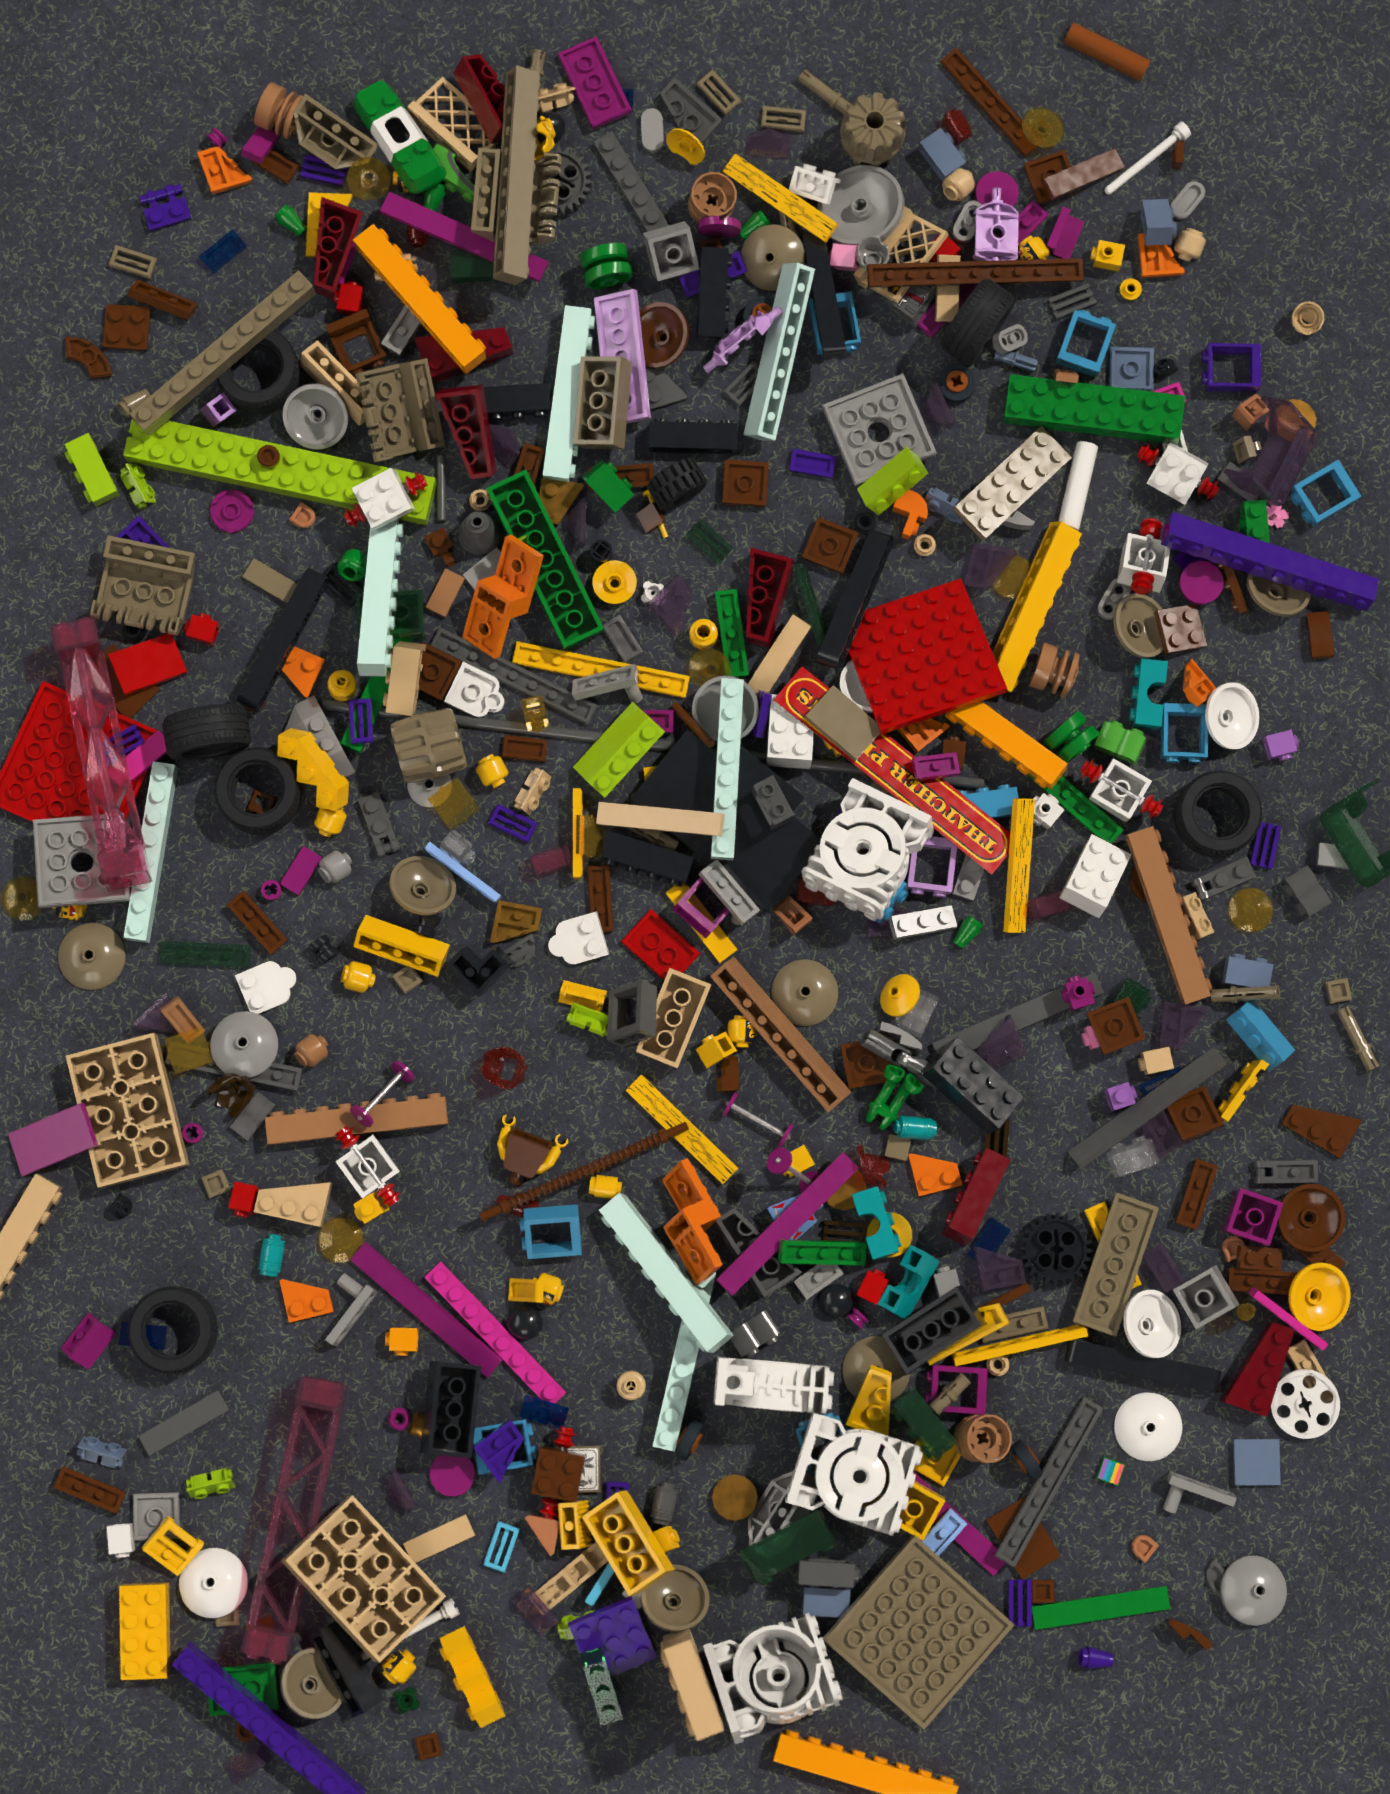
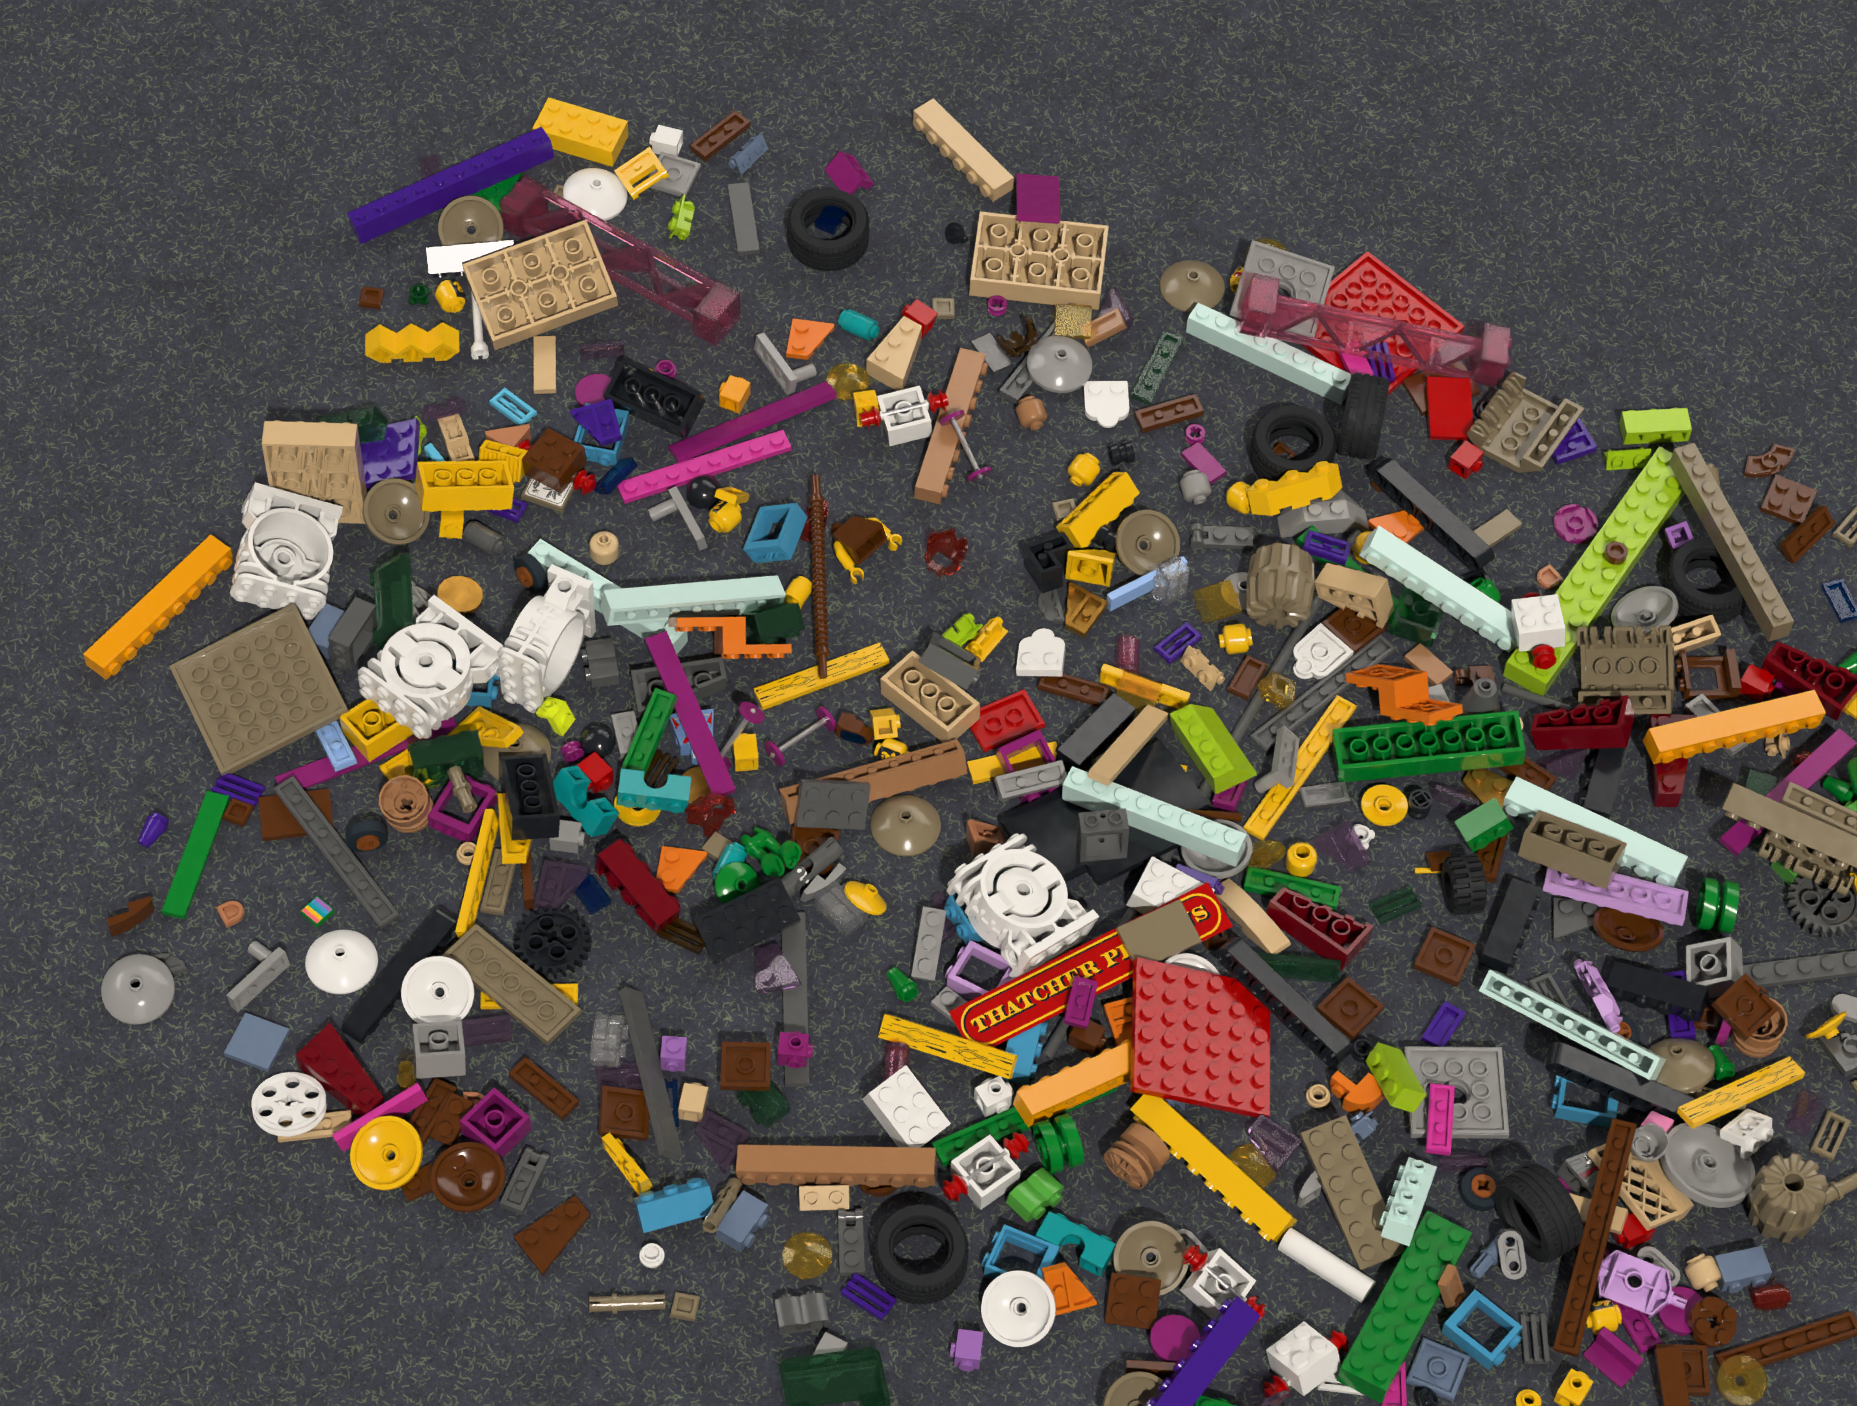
camera: 115 degrees right, 25 degrees down
(464, 925) = (1090, 566): none -> yellow slope
(551, 1339) = (678, 504): none -> light grey piece
(659, 1188) = (774, 621): none -> clear green brick
(714, 208) = (1745, 1006): none -> reddish brown plate
(825, 1058) = (832, 804): none -> dark grey plate
(828, 1349) = (557, 714): none -> neon yellow bracket
(915, 432) = (1440, 1119): none -> dark pink tile
(933, 1112) = (727, 881): none -> green dish
(1003, 434) = (1408, 1201): none -> light aqua brick
(1005, 155) = (1722, 1314): none -> reddish brown plate
(1306, 1037) = (651, 1255): none -> white plate

